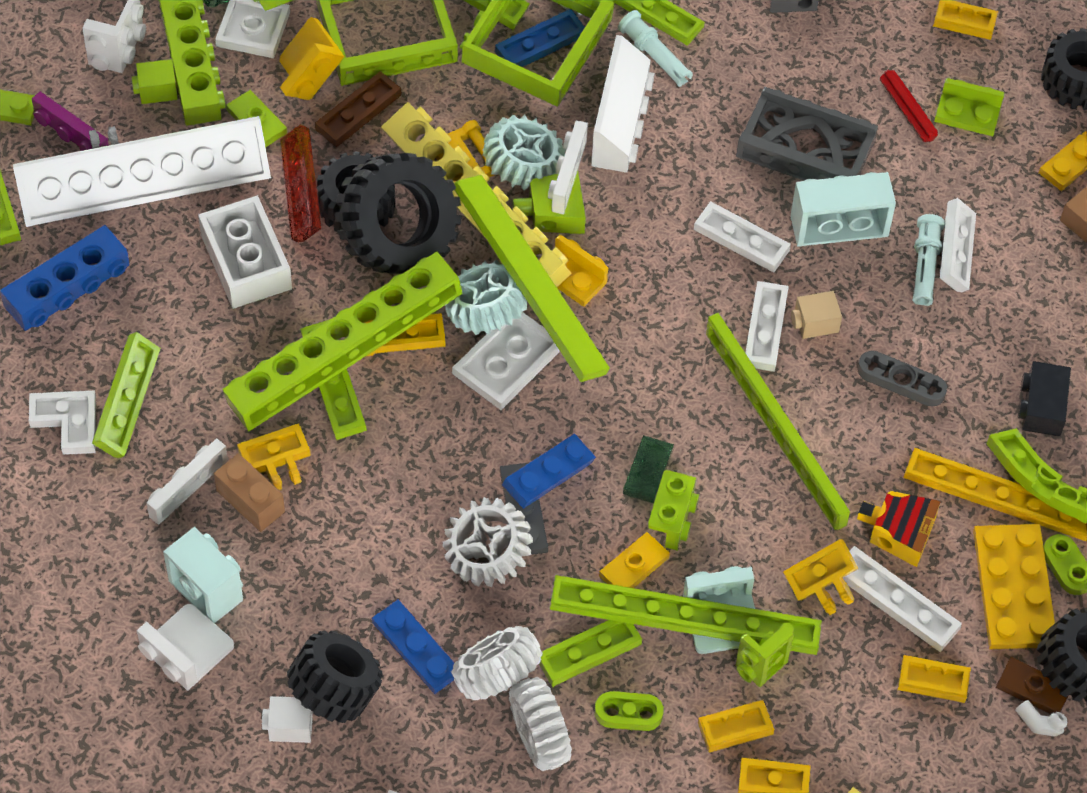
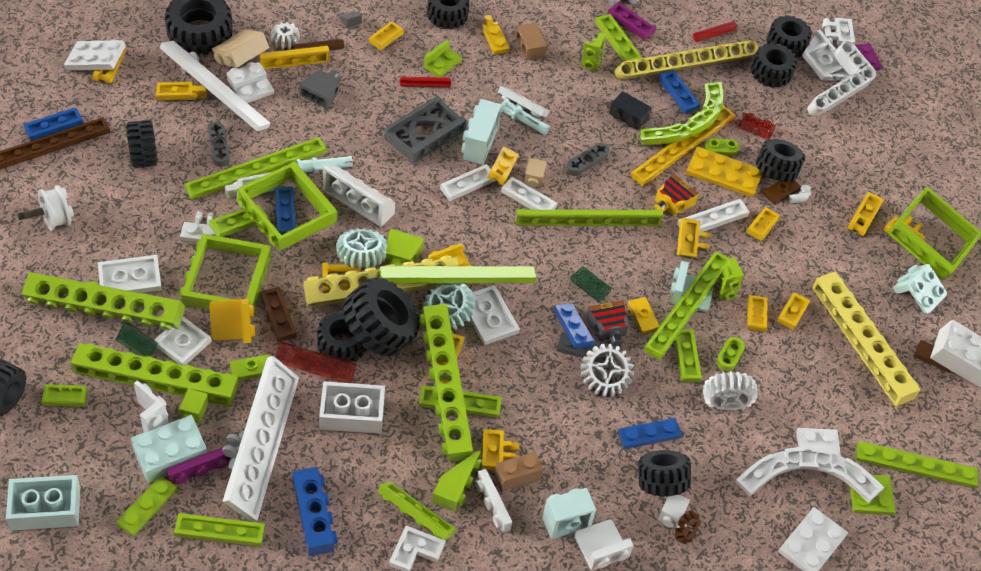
camera: 70 degrees left, 5 degrees down
(78, 81) = (167, 447): none -> light aqua brick
(191, 423) = (452, 484): none -> lime slope
(272, 737) = (687, 527): none -> reddish brown gear
(497, 663) = (688, 394): white gear -> none
(568, 166) = (393, 228): white plate -> none
(588, 518) = (609, 321): none -> torso
(671, 507) = (625, 279): lime bracket -> none
(801, 266) = (503, 165): none -> yellow plate

